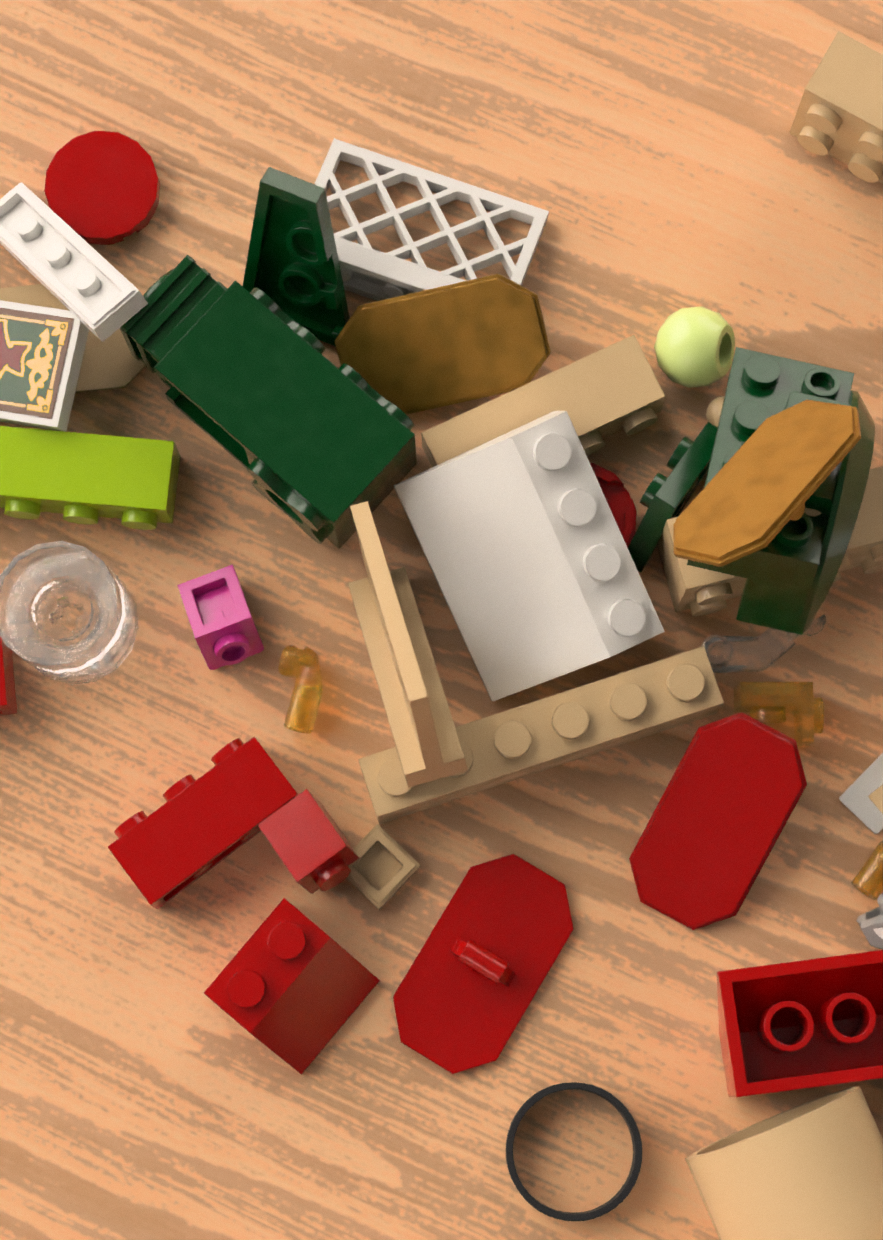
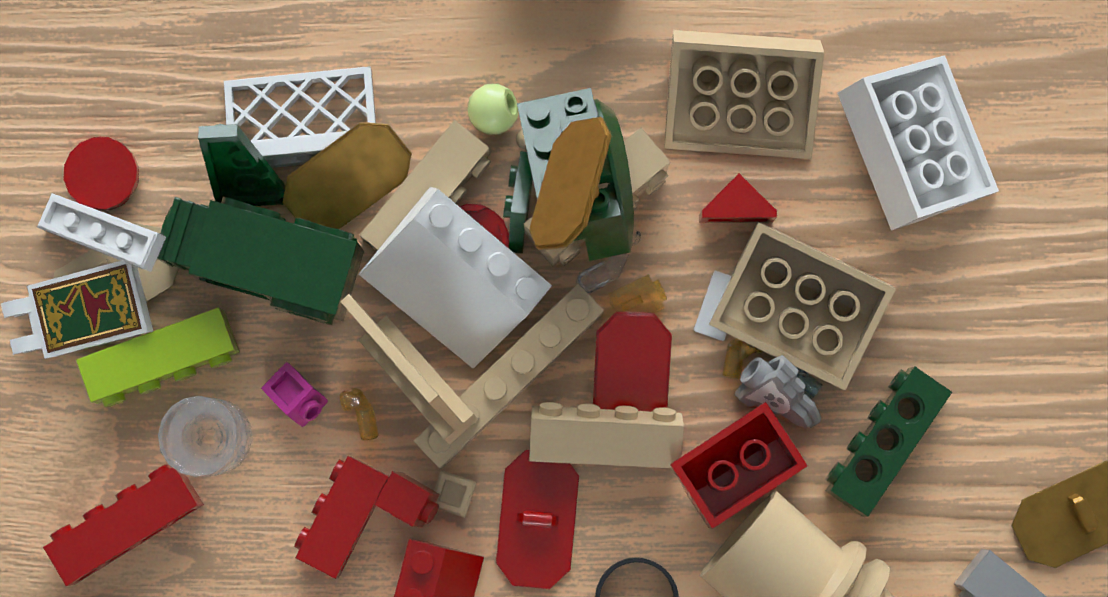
camera: 30 degrees left, 5 degrees up
(640, 887) = (605, 435): none -> tan brick

